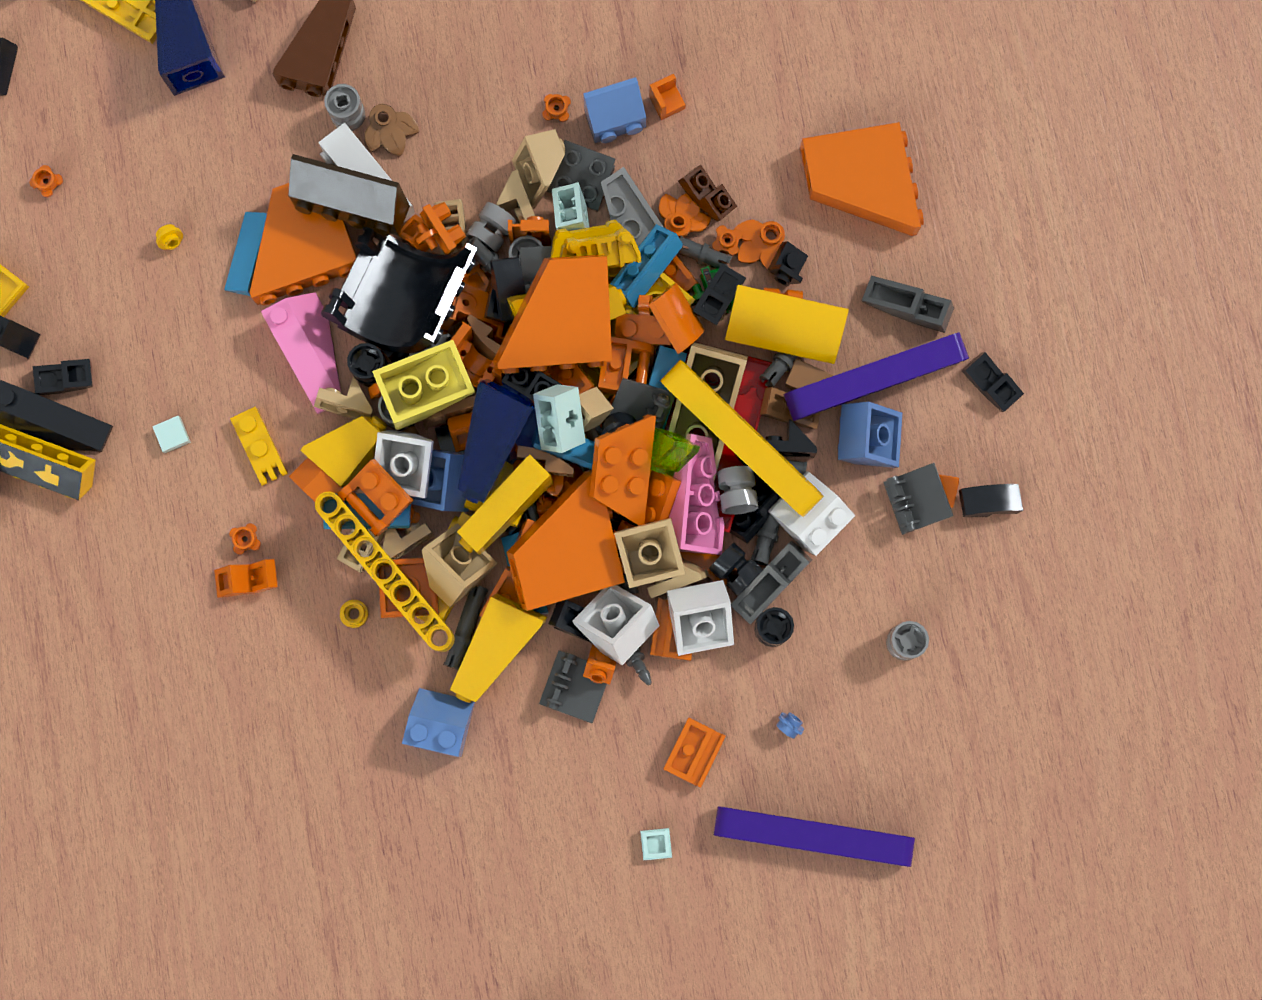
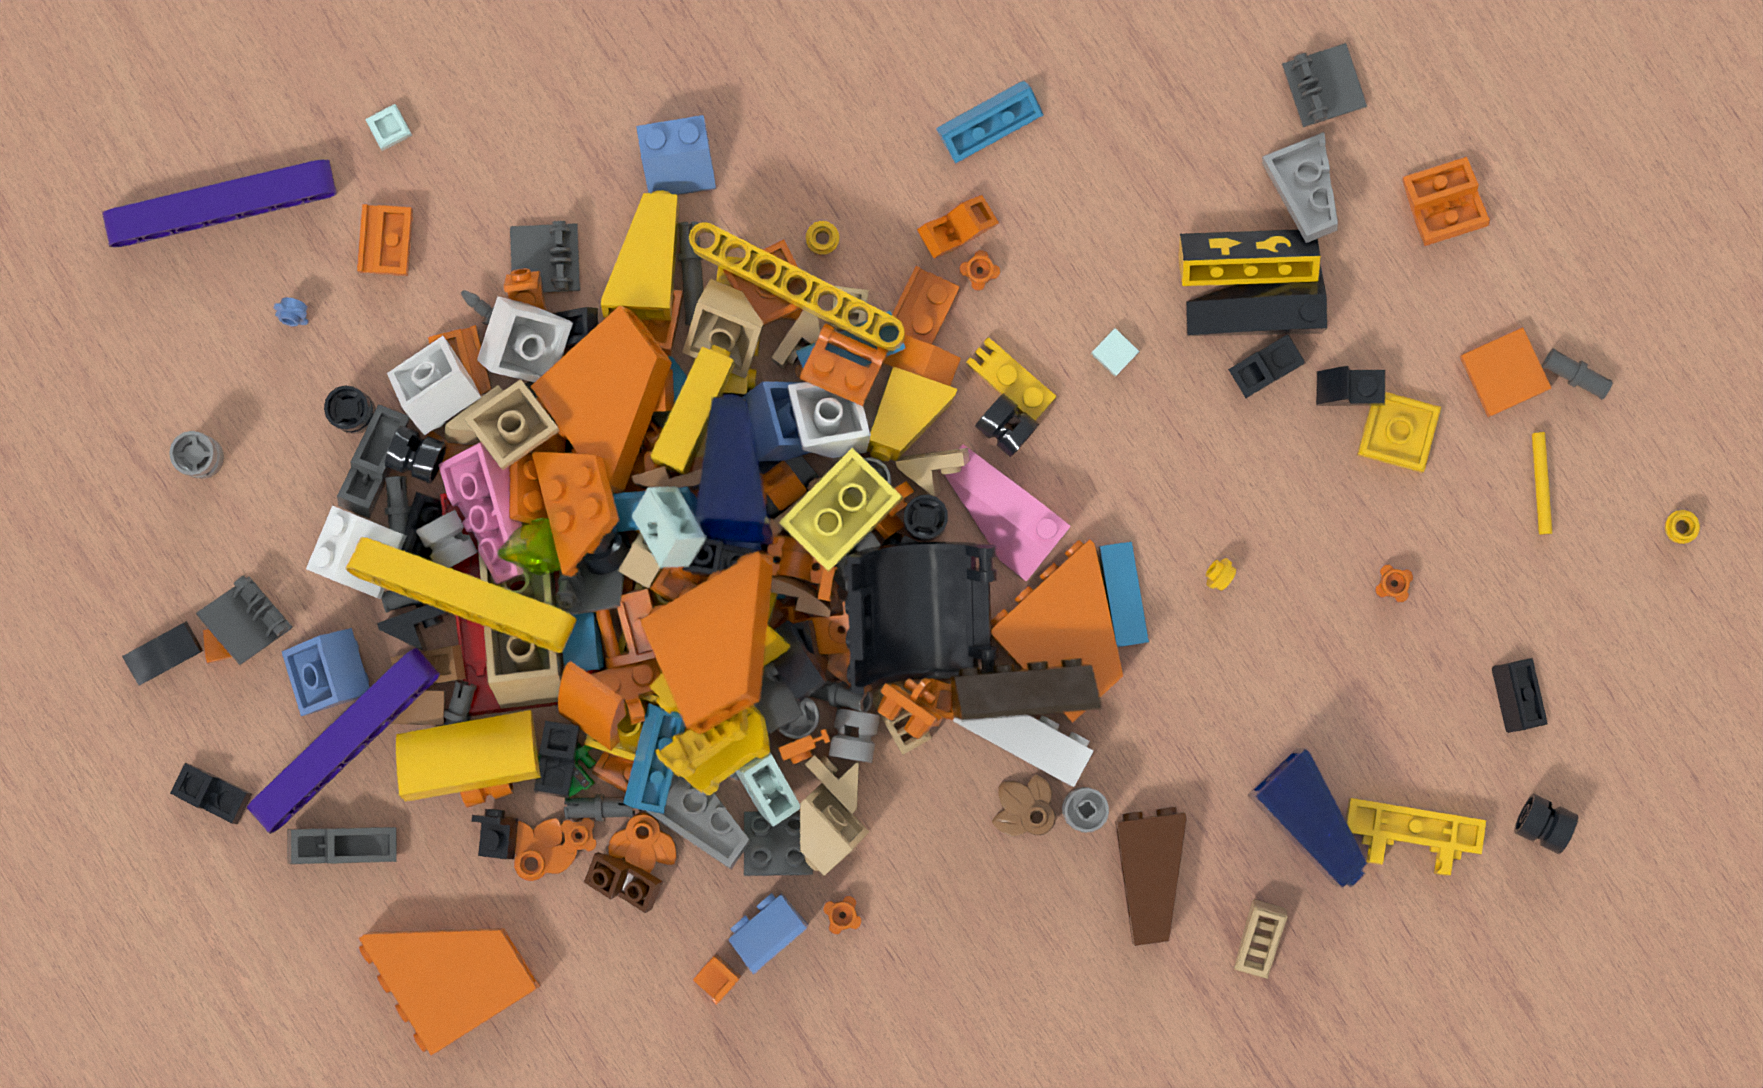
camera: 160 degrees right, 5 degrees up
(185, 652) = (990, 121): none -> dark azure slope
(275, 408) = (995, 419): none -> black wheel
(298, 530) = (925, 304): none -> orange plate

